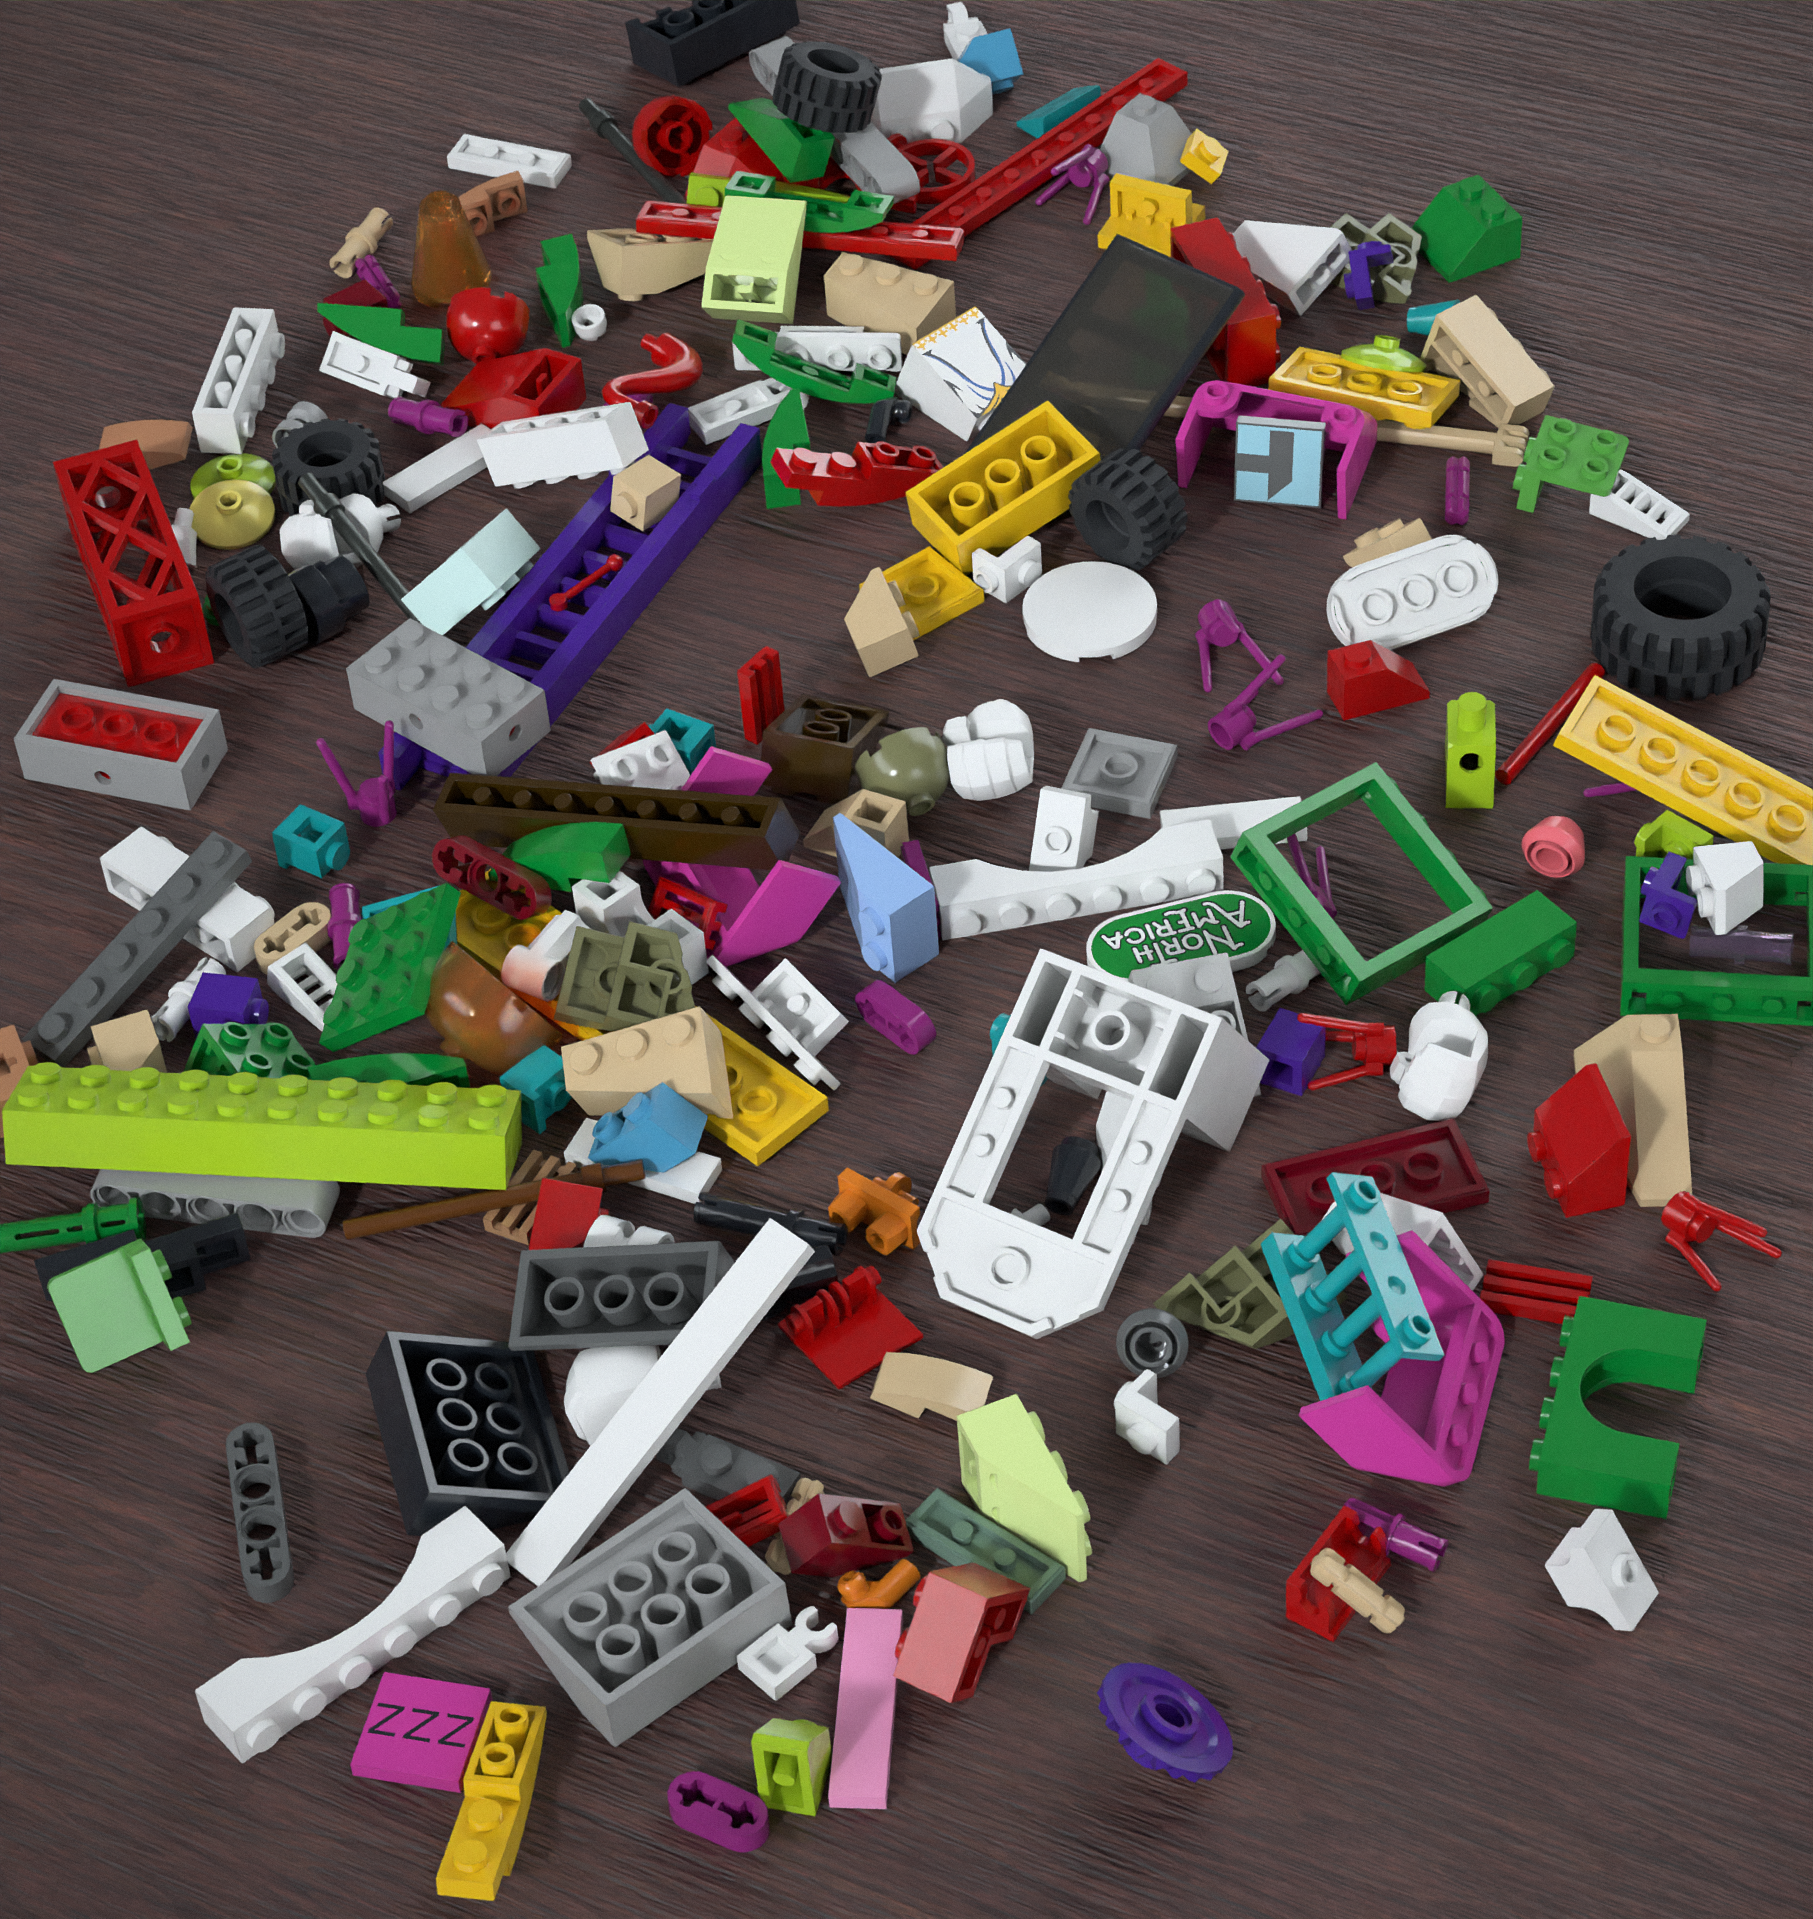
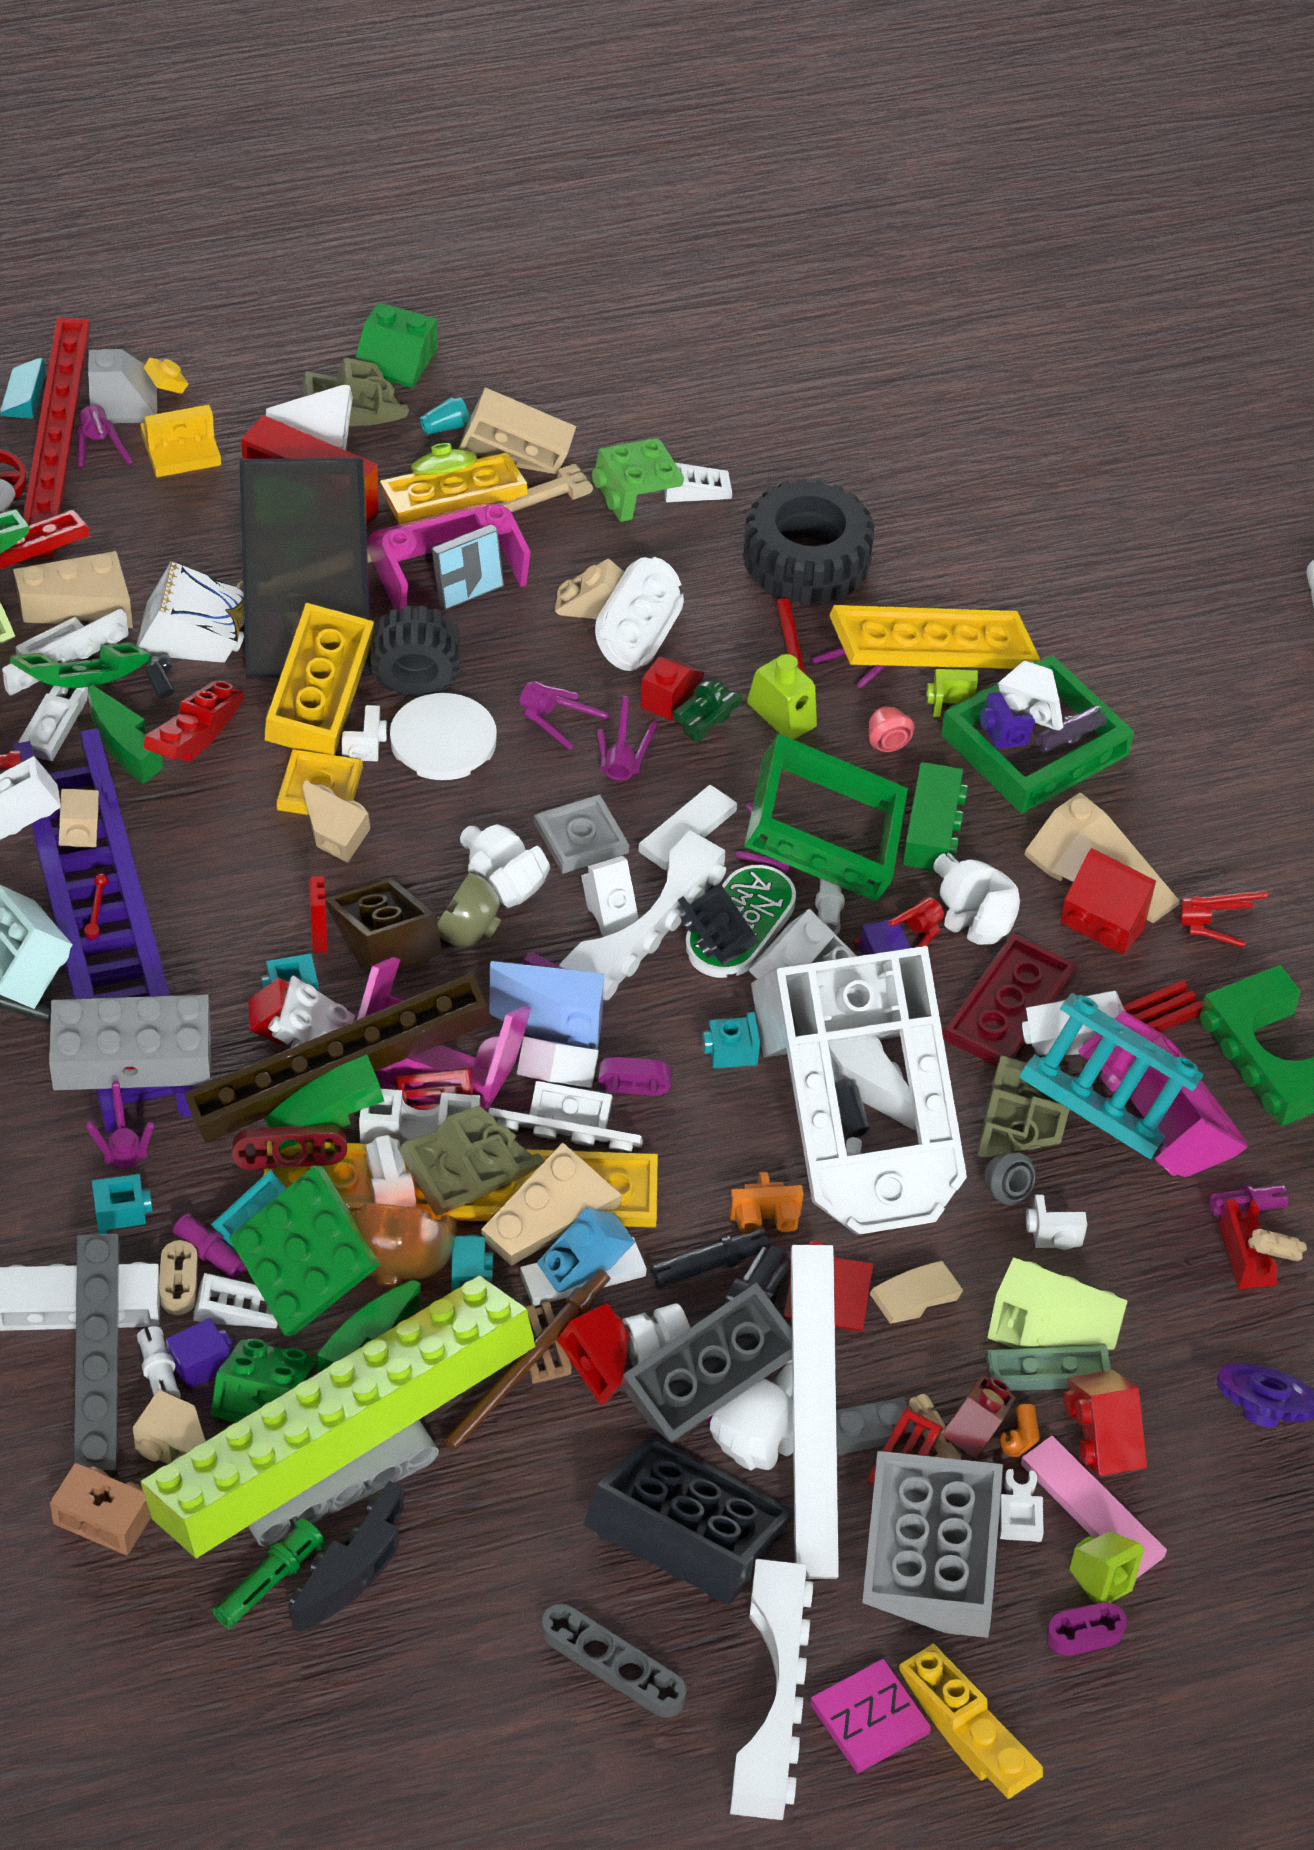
camera: 50 degrees left, 5 degrees up
(119, 1306) = (383, 1590): bright green bracket -> none
(837, 961) = (557, 1062): none -> white slope
(874, 813) = (476, 957): tan slope -> none
(1130, 922) = (720, 925): none -> black bracket
(1358, 282) = (371, 410): dark purple bracket -> none
(1378, 719) = (706, 708): none -> dark green hips
(1457, 490) = (578, 528): magenta axle -> none

